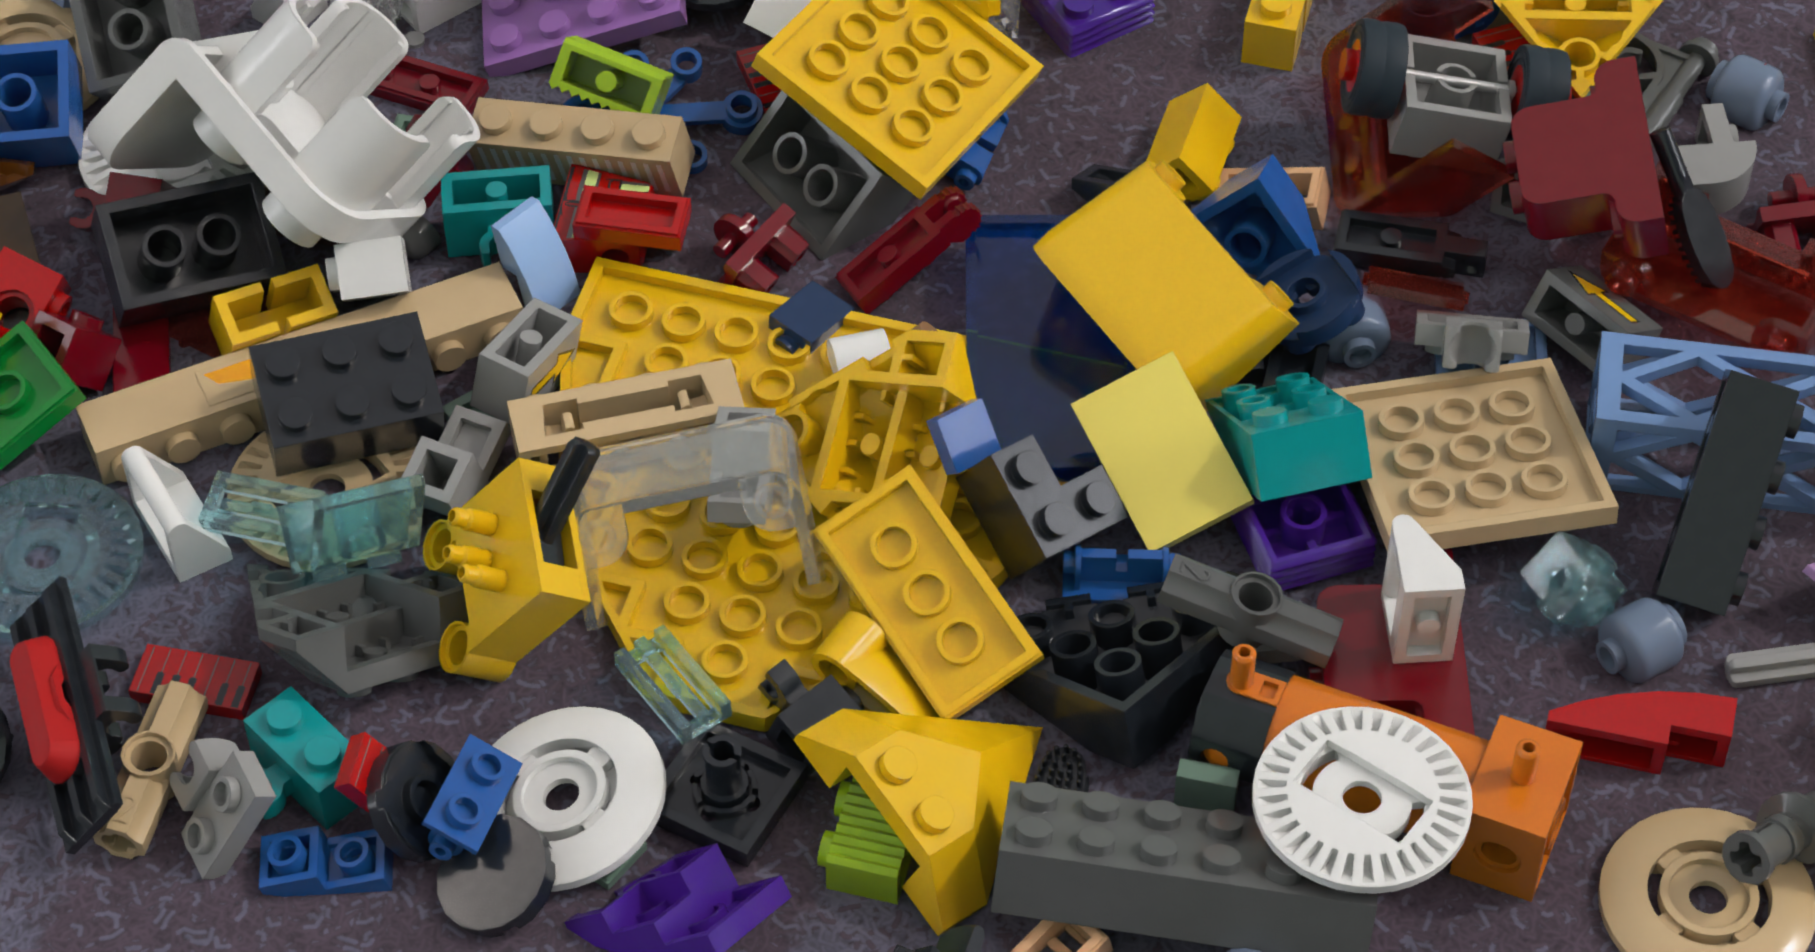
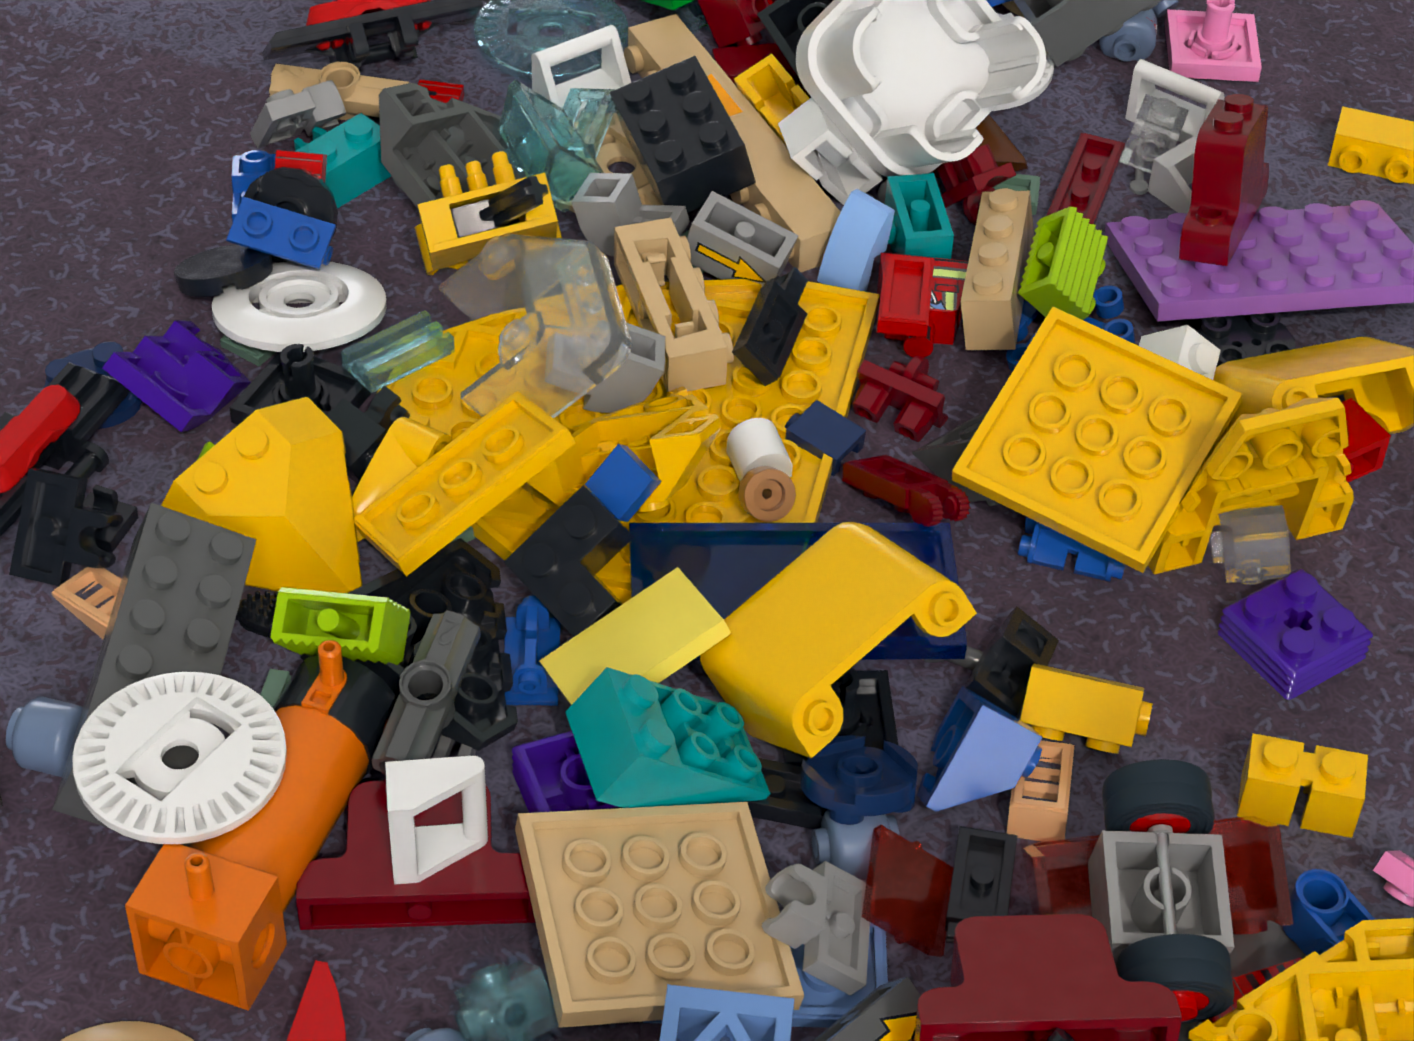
camera: 85 degrees right, 5 degrees down
(659, 334) = (772, 327): none -> black hinge
(1183, 665) = (362, 624): none -> lime brick

